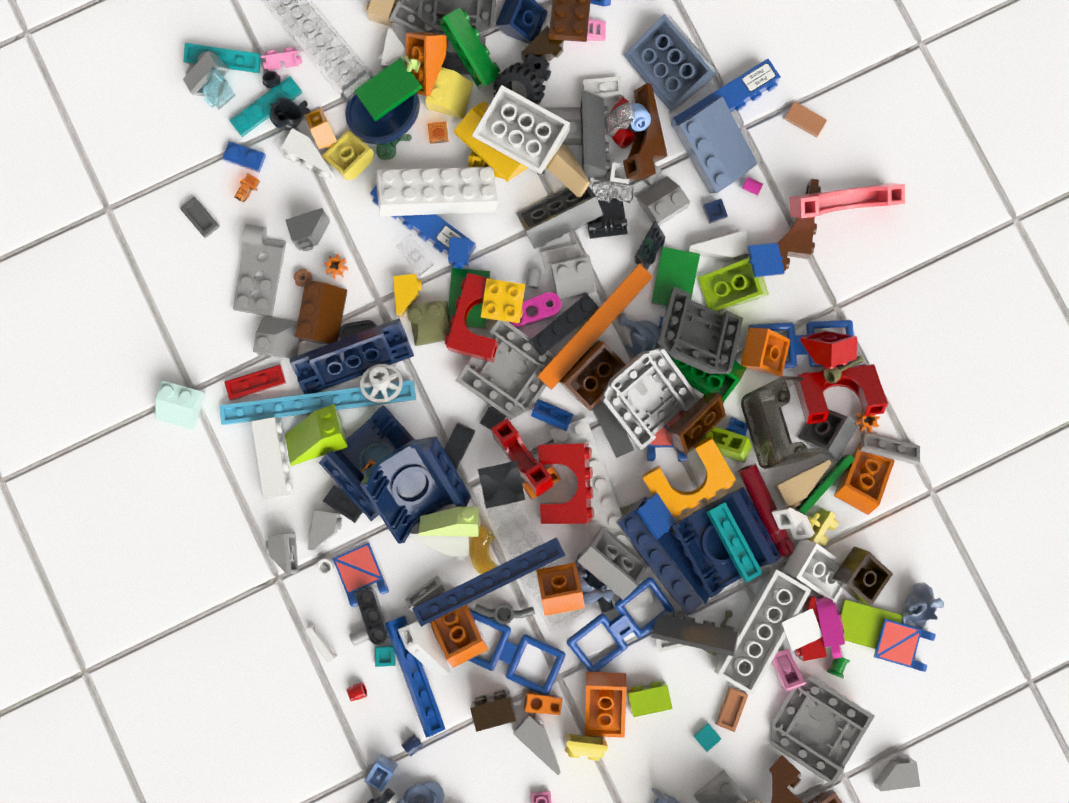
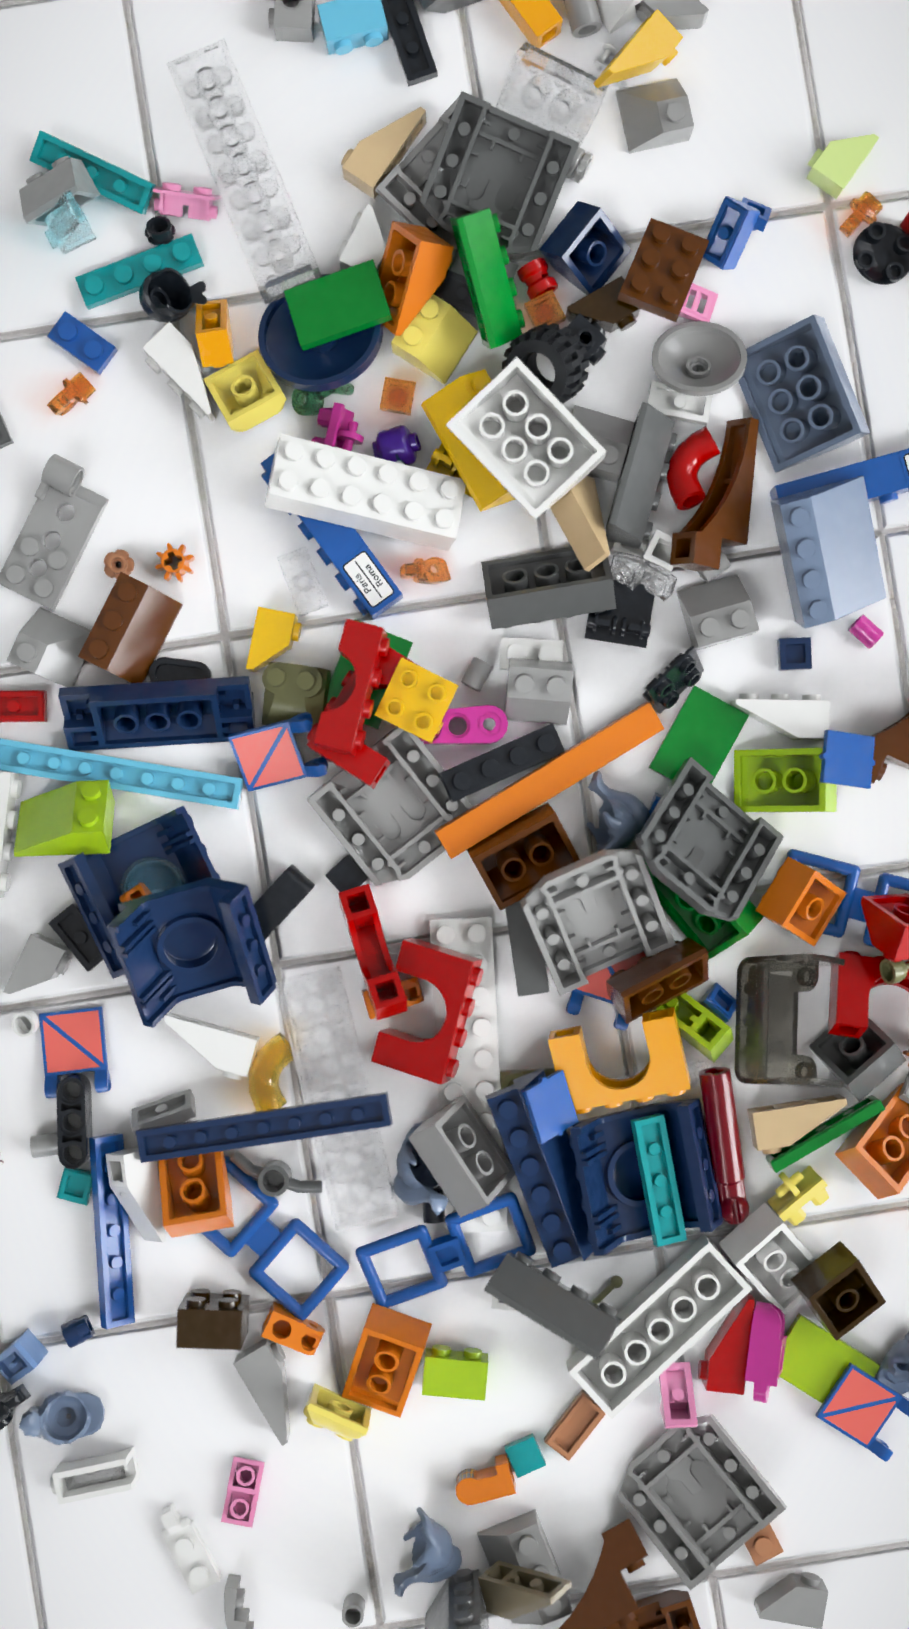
camera: 20 degrees right, 5 degrees up
(307, 228) = (146, 491): dark grey slope -> none
(357, 691) = (18, 1226): red hose -> none
(380, 381) = (190, 766): white wheel -> none
(409, 158) = (341, 427): none -> dark pink hips
(412, 64) = (387, 276): yellowish green hand -> none
(427, 361) = (272, 755): none -> flag
(446, 159) = (397, 445): none -> dark purple head
(451, 522) = (233, 1018): yellowish green slope -> none
(459, 252) = (371, 601): blue brick -> none
(464, 329) = (342, 727): none -> red arch
(482, 228) = (421, 571): none -> clear orange piece
(498, 42) = (536, 277): none -> red wheel
(501, 484) = (327, 986): black brick -> none
(508, 58) = (544, 310): none -> clear orange plate
(552, 415) = (440, 897): blue plate -> none
(560, 588) = (368, 1172): orange slope -> none
(606, 59) = (699, 358): none -> light grey dish
(619, 118) = (688, 465): clear slope -> none
(641, 120) = (716, 470): light blue head -> none
(689, 762) = (487, 1483): none -> orange leg
(796, 521) = (763, 1179): white slope -> none
(802, 629) = (719, 1344): white sticker -> none
(838, 666) = (756, 1414): green bush -> none
(868, 746) = (764, 1545): none -> nougat plate

